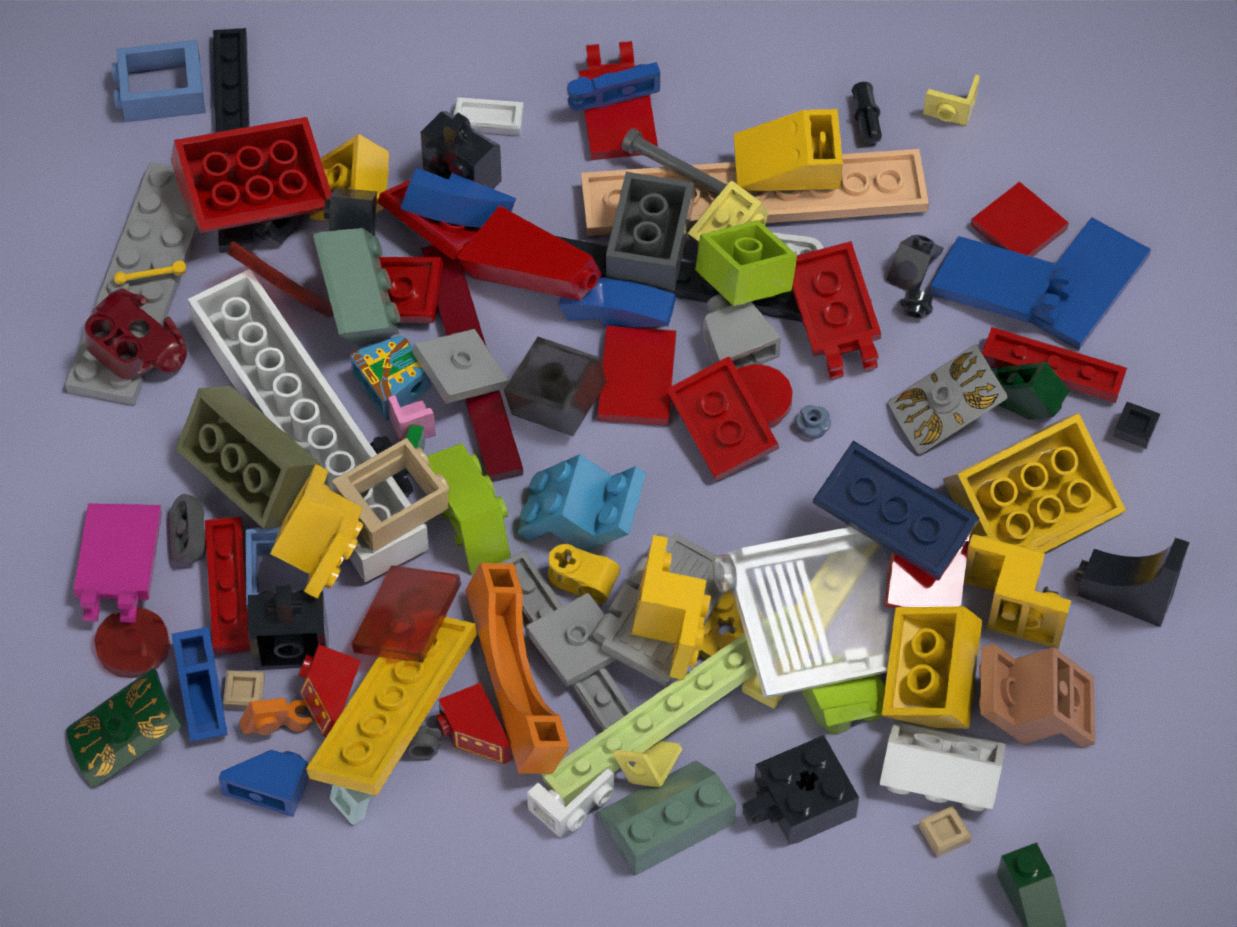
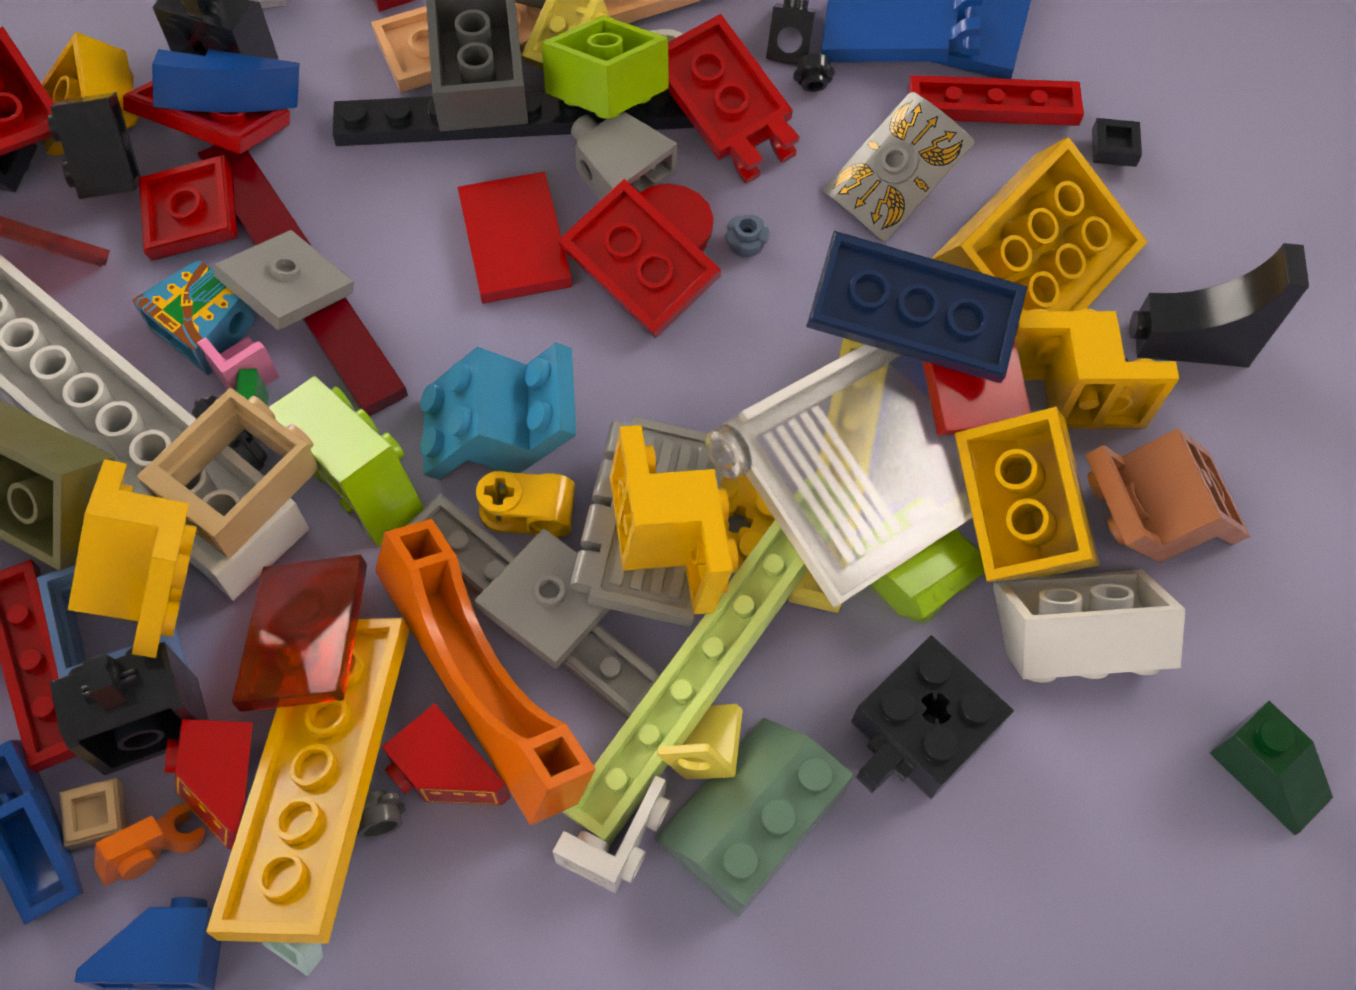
camera: 20 degrees left, 5 degrees up
(357, 285) = (115, 209): sand green slope -> none
(528, 258) = (335, 127): red slope -> none
(555, 386) = (415, 272): clear smoke brick -> none
(621, 305) = (459, 155): blue slope -> none
(944, 831) = (1122, 714): tan tile -> none
(1032, 390) = (997, 129): dark green slope -> none

